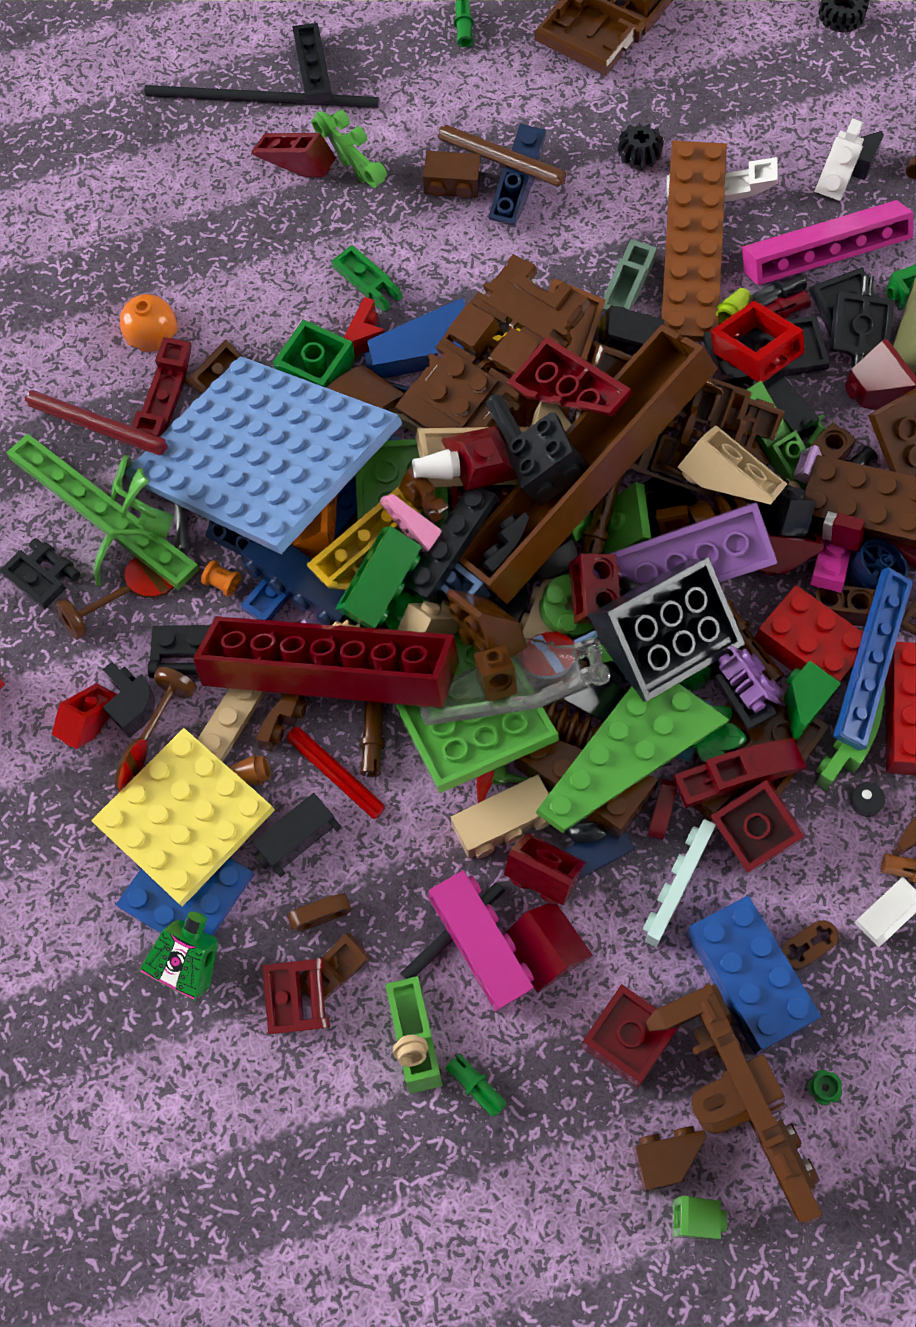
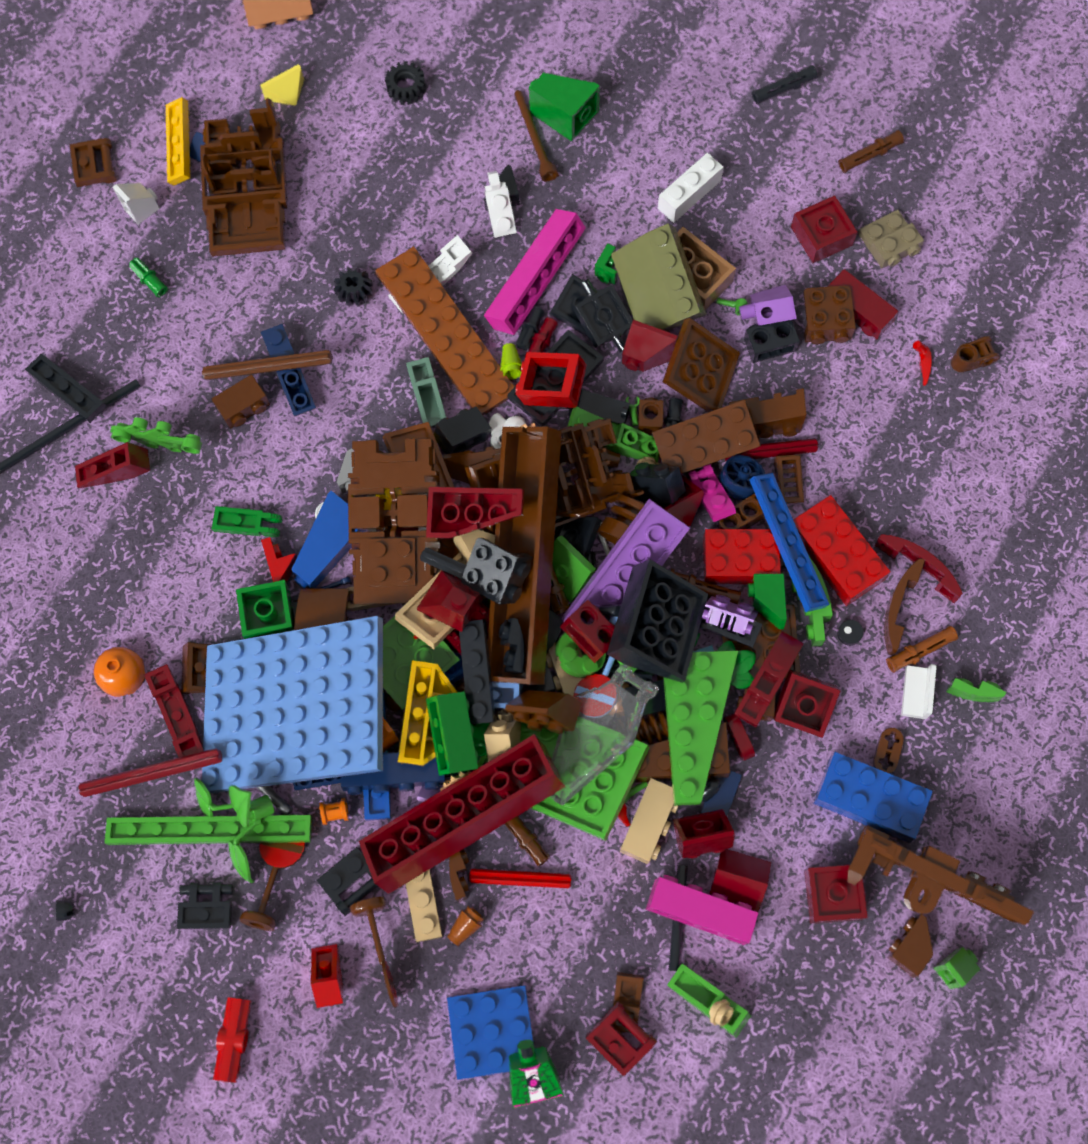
camera: 40 degrees left, 5 degrees up
(134, 703) = (352, 939): black brick -> none
(183, 816) = (452, 988): light yellow plate -> none
(294, 834) = (531, 940): black brick -> none
(319, 912) = (589, 975): reddish brown beam -> none
(411, 522) = (447, 681): bright pink slope -> none
(420, 493) = (433, 655): reddish brown plate -> none
(439, 465) = (434, 630): white cone -> none
(476, 1085) = (771, 999): green axle -> none
(495, 673) = (580, 737): reddish brown brick -> none
(671, 894) = (787, 787): light aqua plate -> none
(673, 518) = (600, 545): reddish brown plate -> none
(727, 467) = (614, 488): tan slope -> none
(806, 463) = (647, 442): lavender slope -> none
(834, 1085) = (970, 829): green plate -> none
(843, 530) = (707, 471): dark red piece -> none

